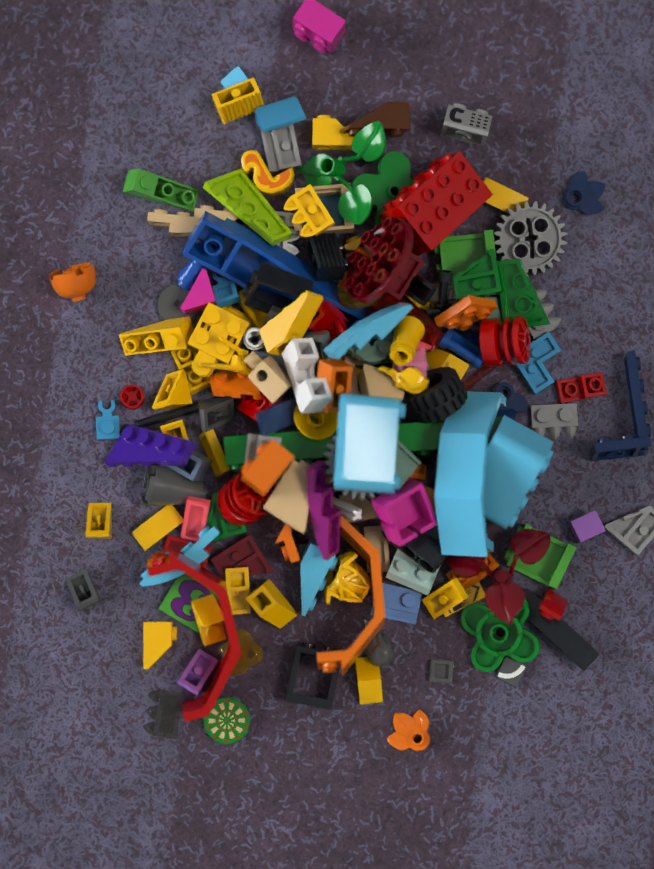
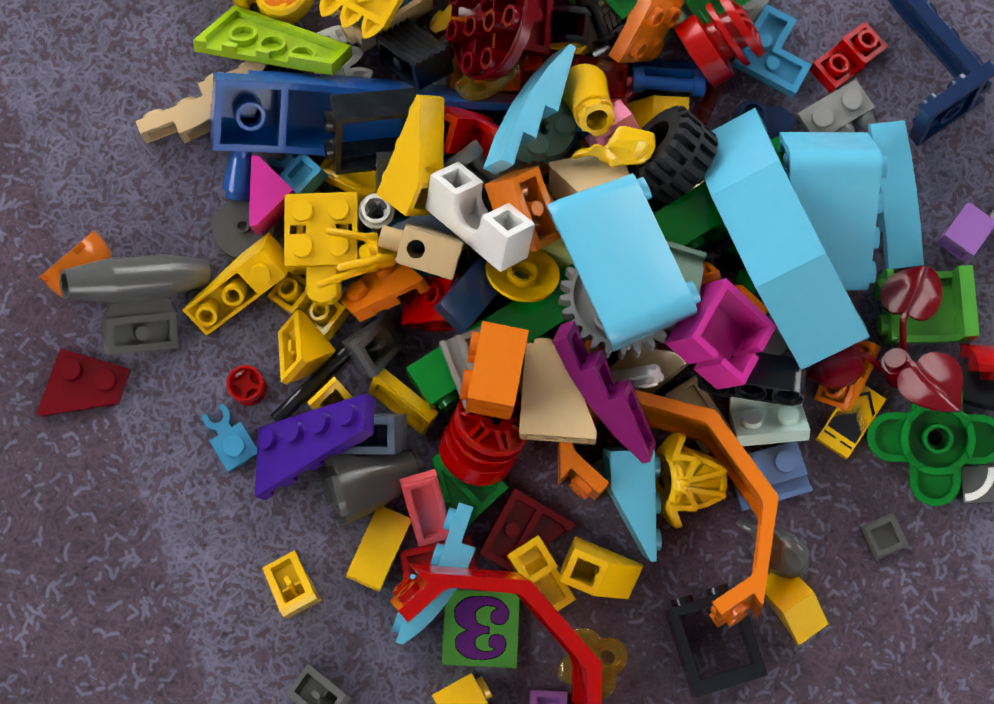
camera: 25 degrees left, 5 degrees down
(41, 347) = (82, 384): none -> dark red wing
(97, 315) = (136, 295): none -> dark grey plate
(160, 190) = (136, 87): bright green slope -> none
(208, 619) = (523, 640): yellow slope -> none
(406, 730) = (885, 643): orange plate -> none
(445, 598) = (837, 429): yellow slope -> none
(559, 483) = (900, 213): none -> medium azure slope

